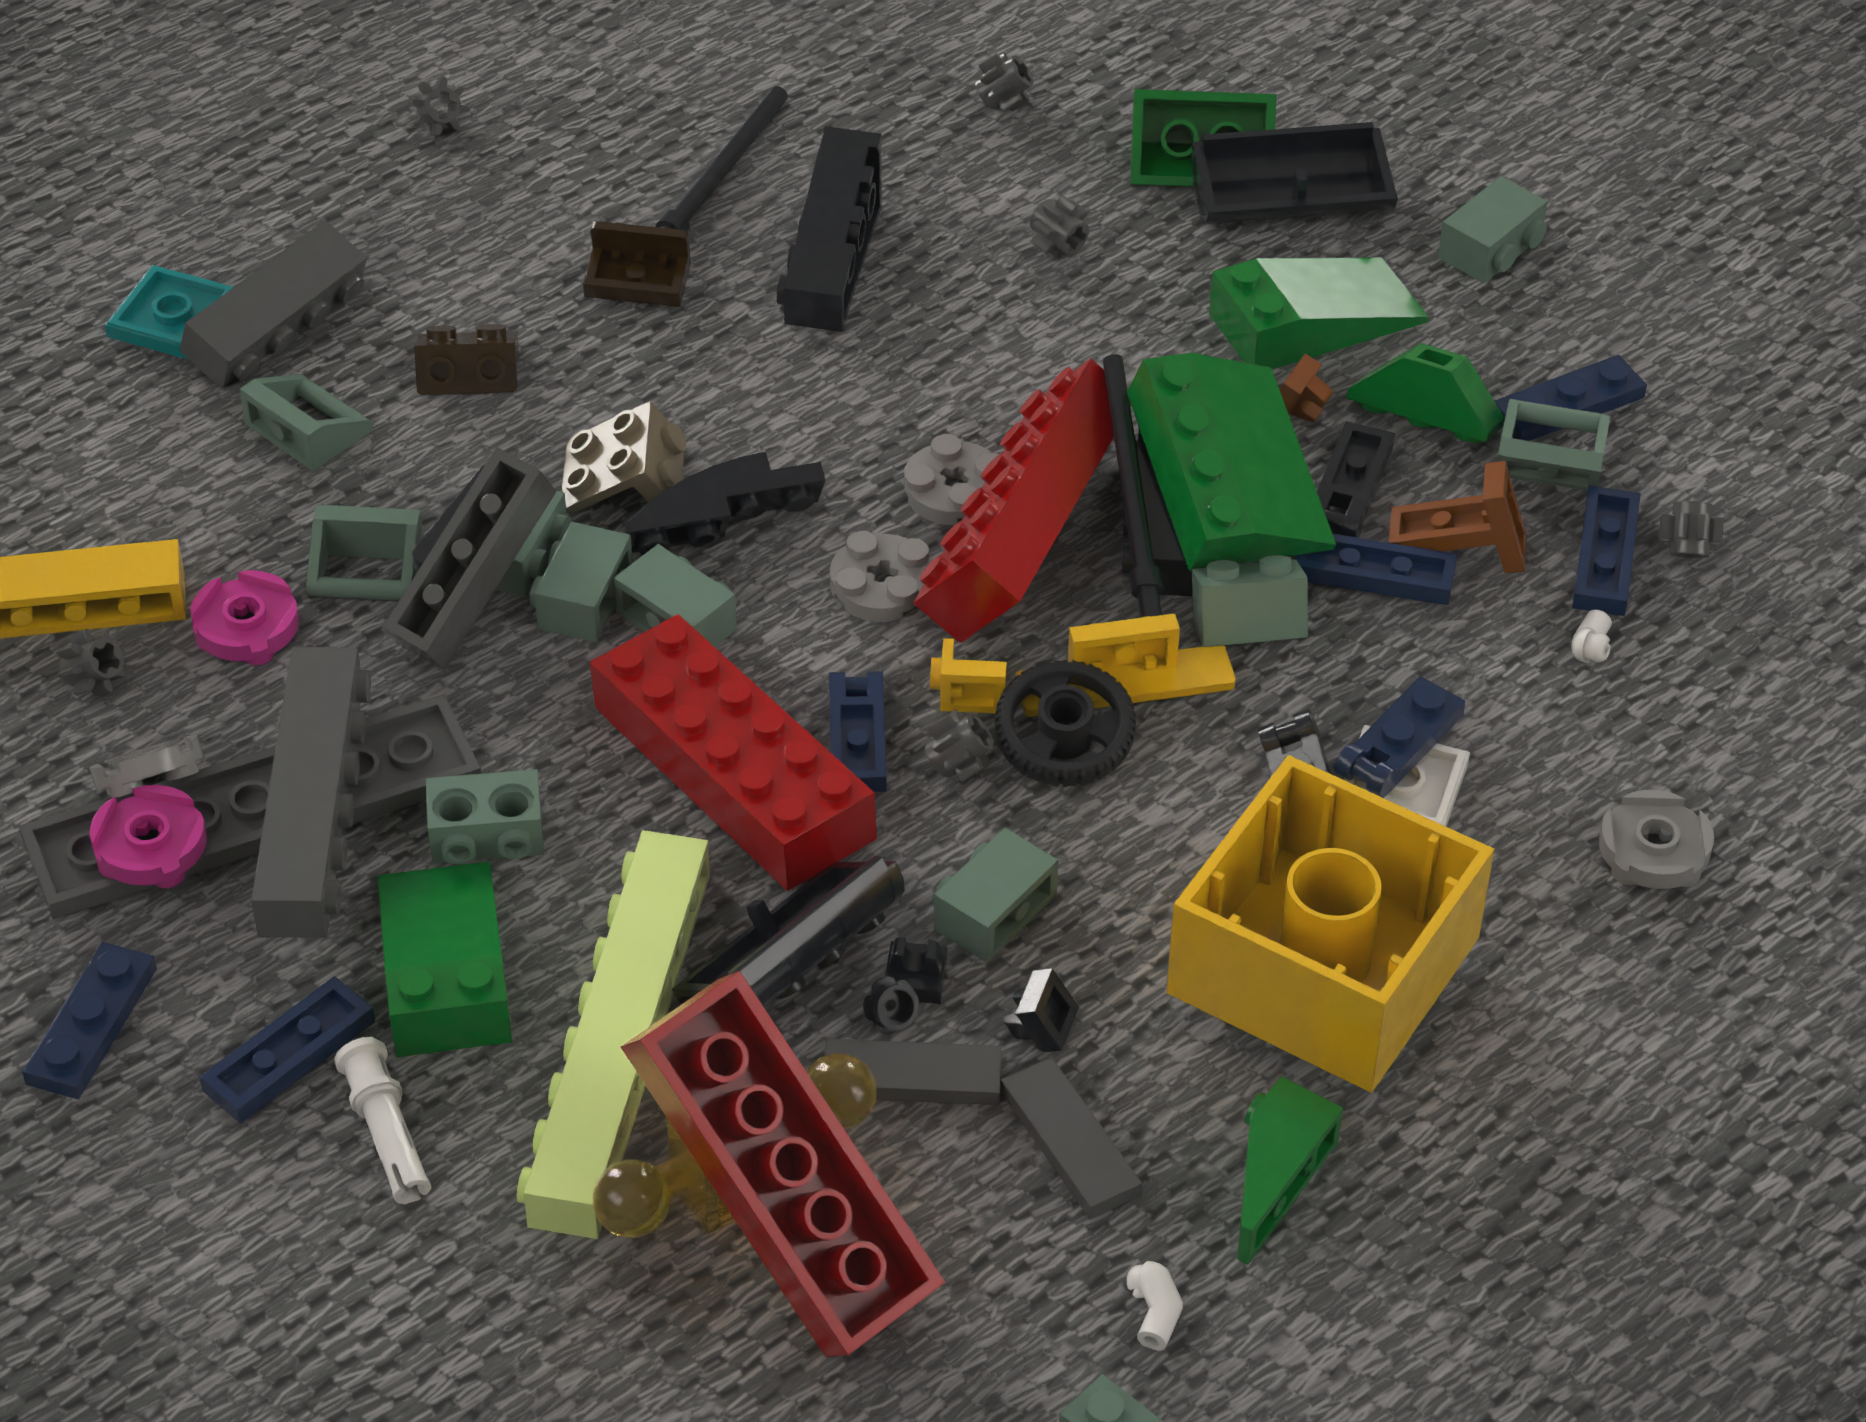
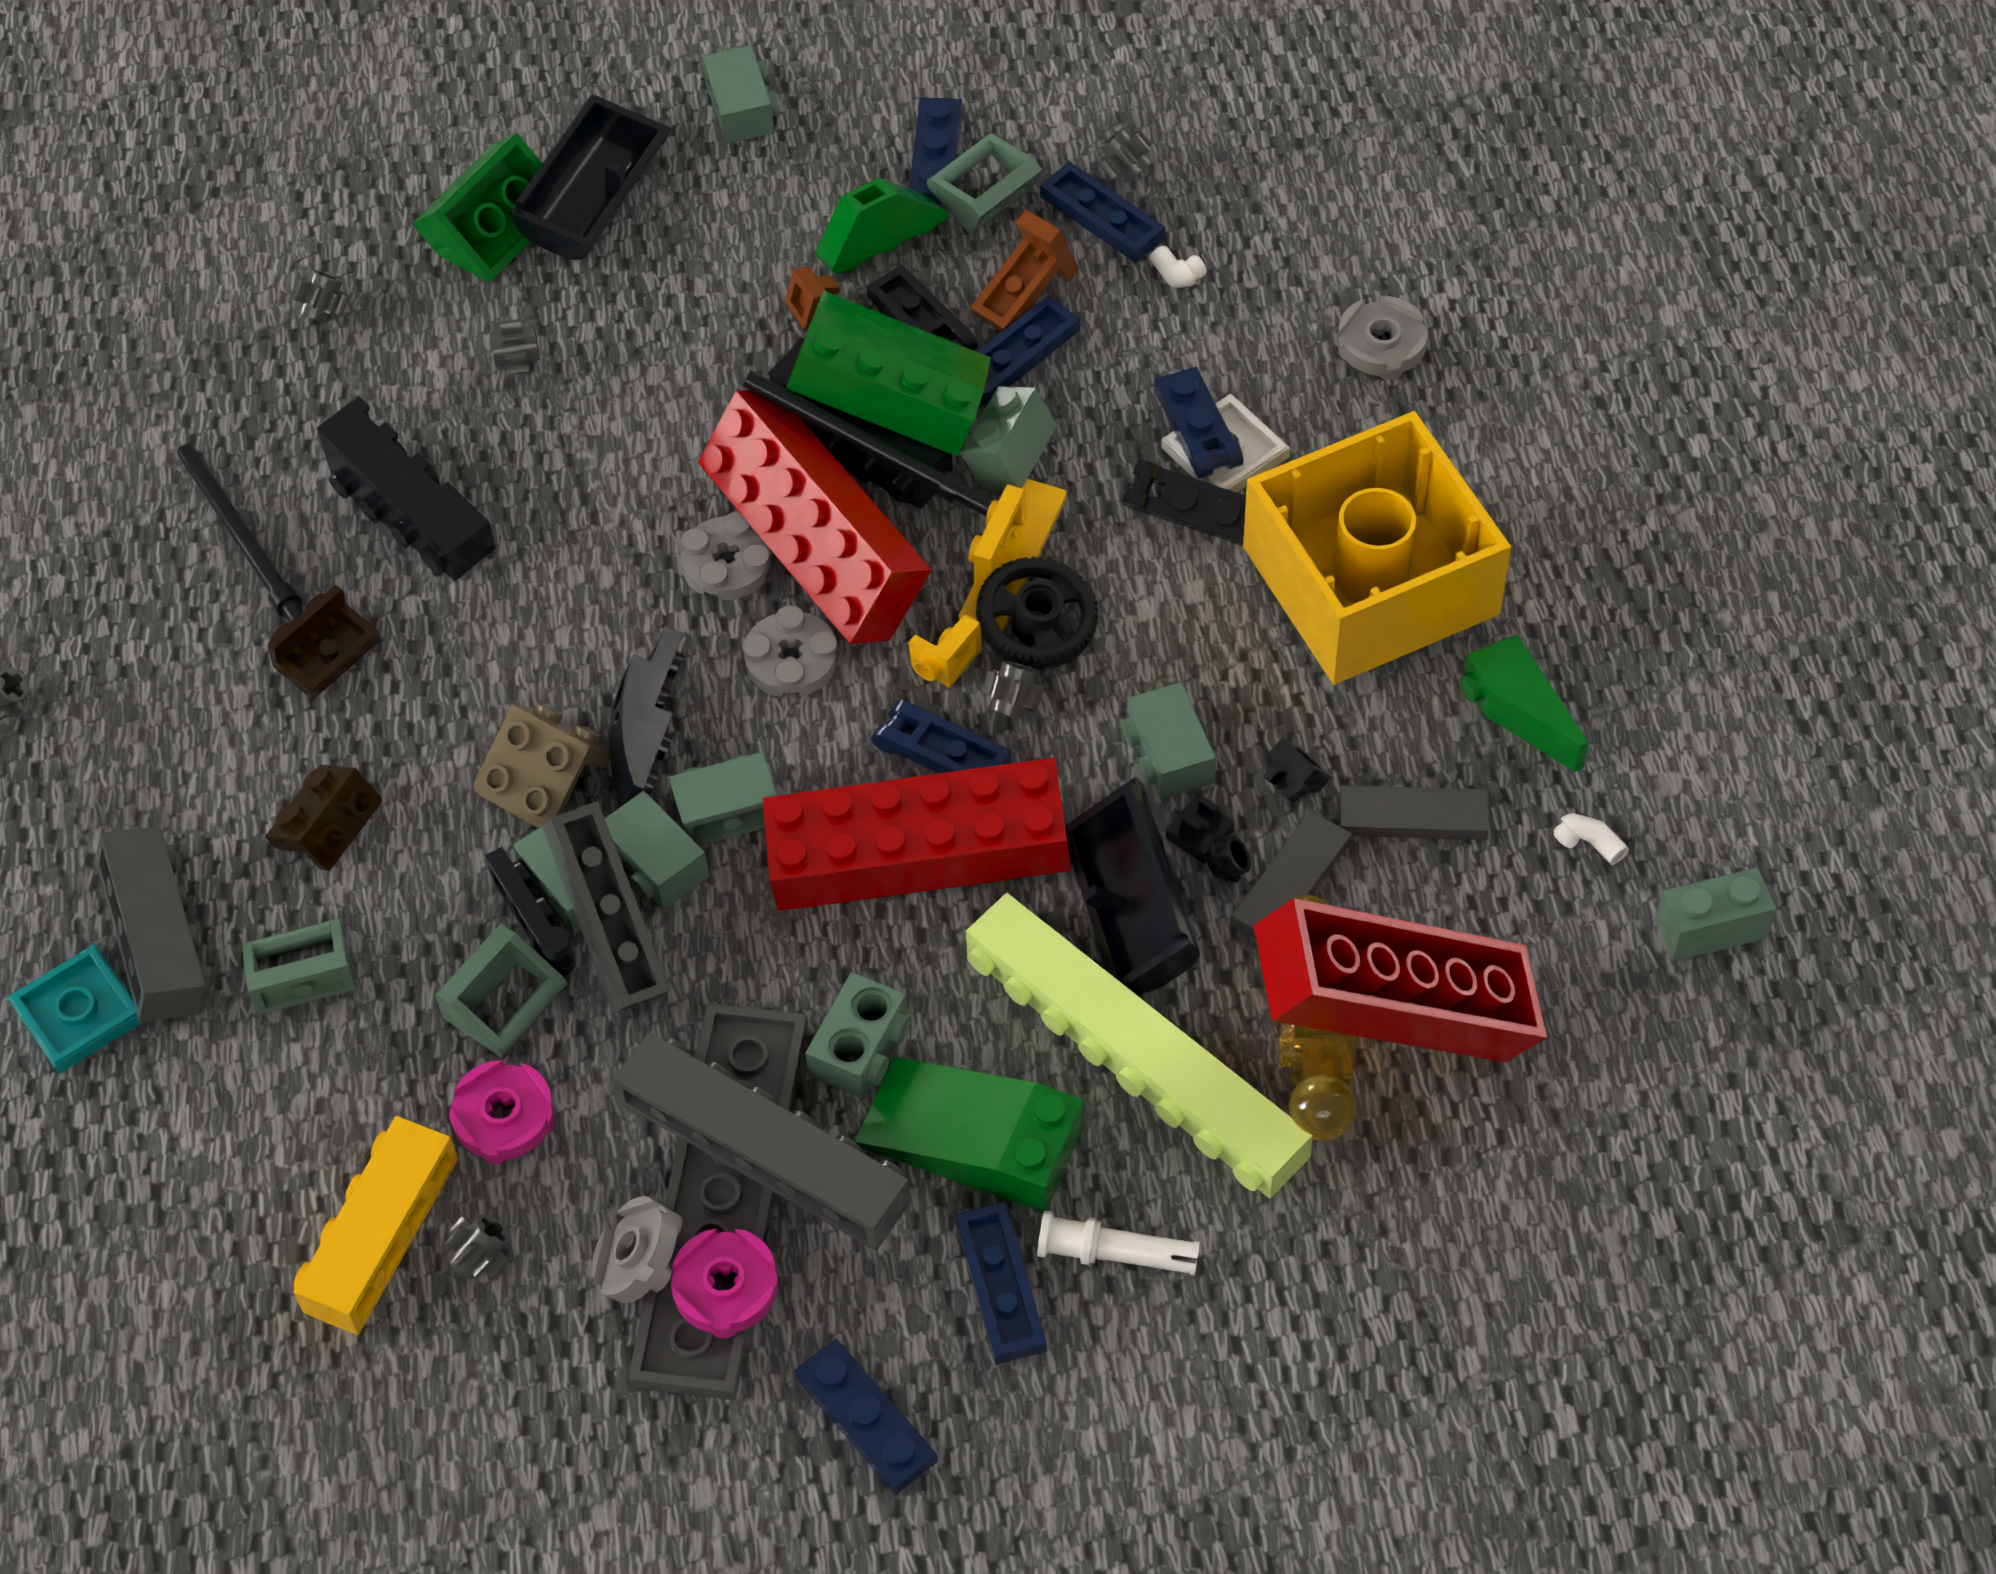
camera: 55 degrees left, 10 degrees up
(1308, 305) = (725, 246): green slope -> none

